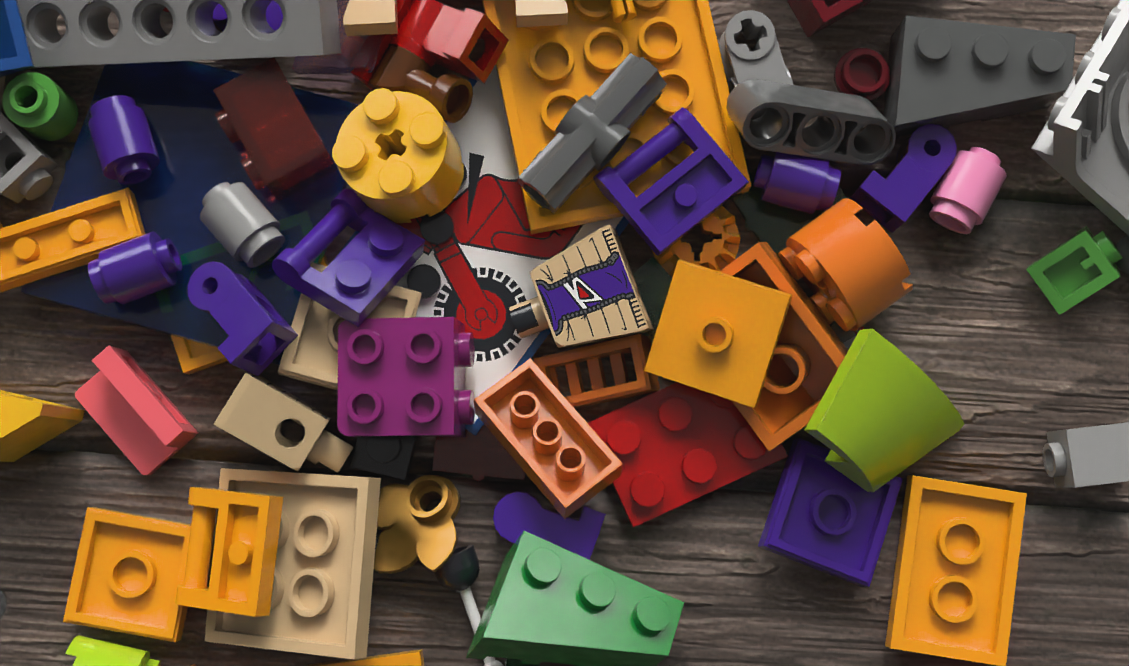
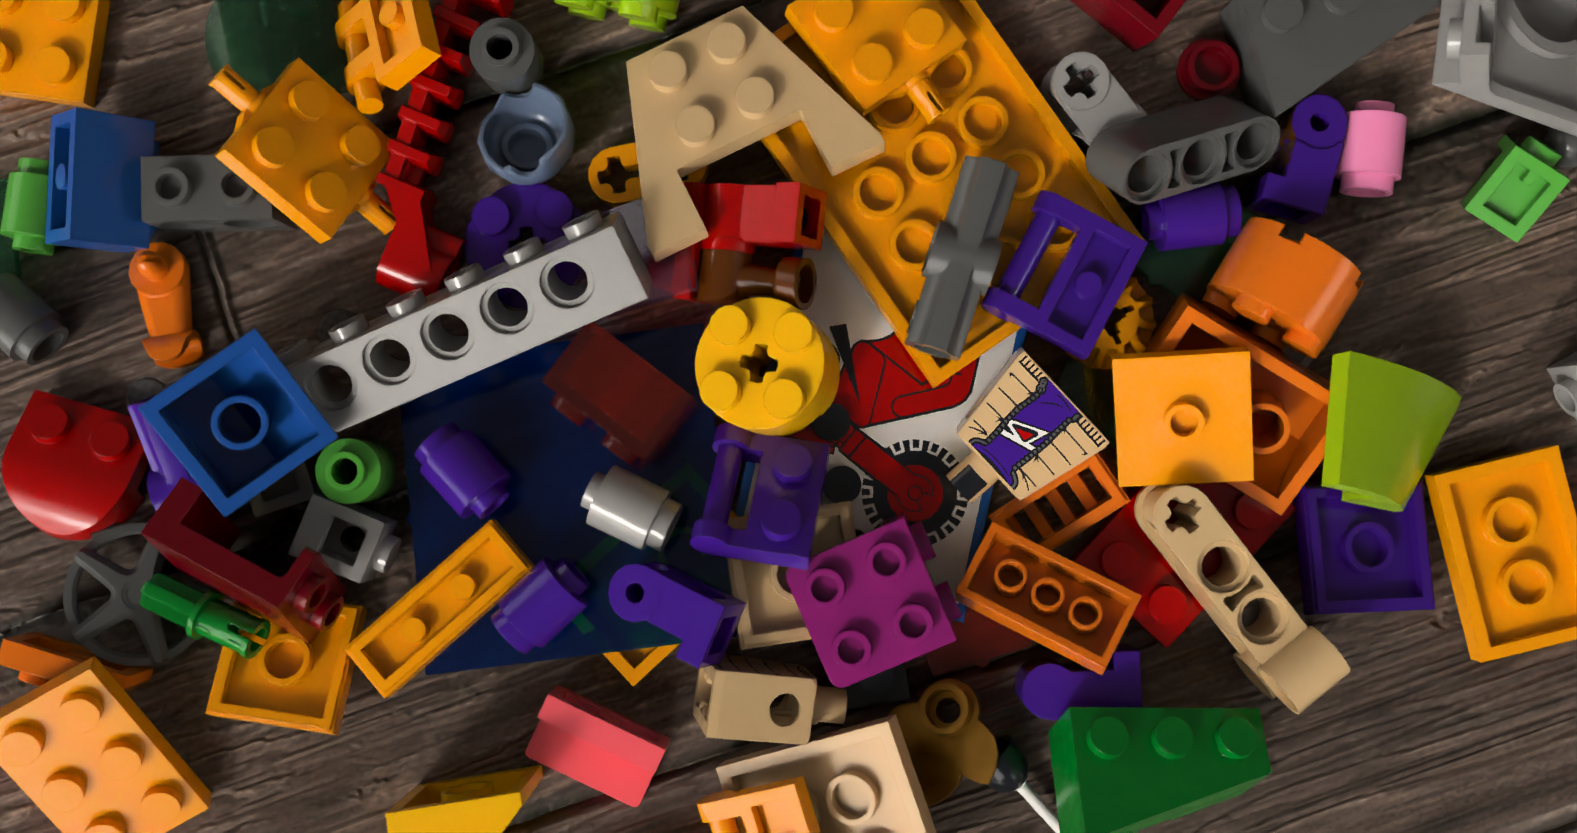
camera: 25 degrees left, 5 degrees up
(720, 564) = (1278, 649): none -> tan piece

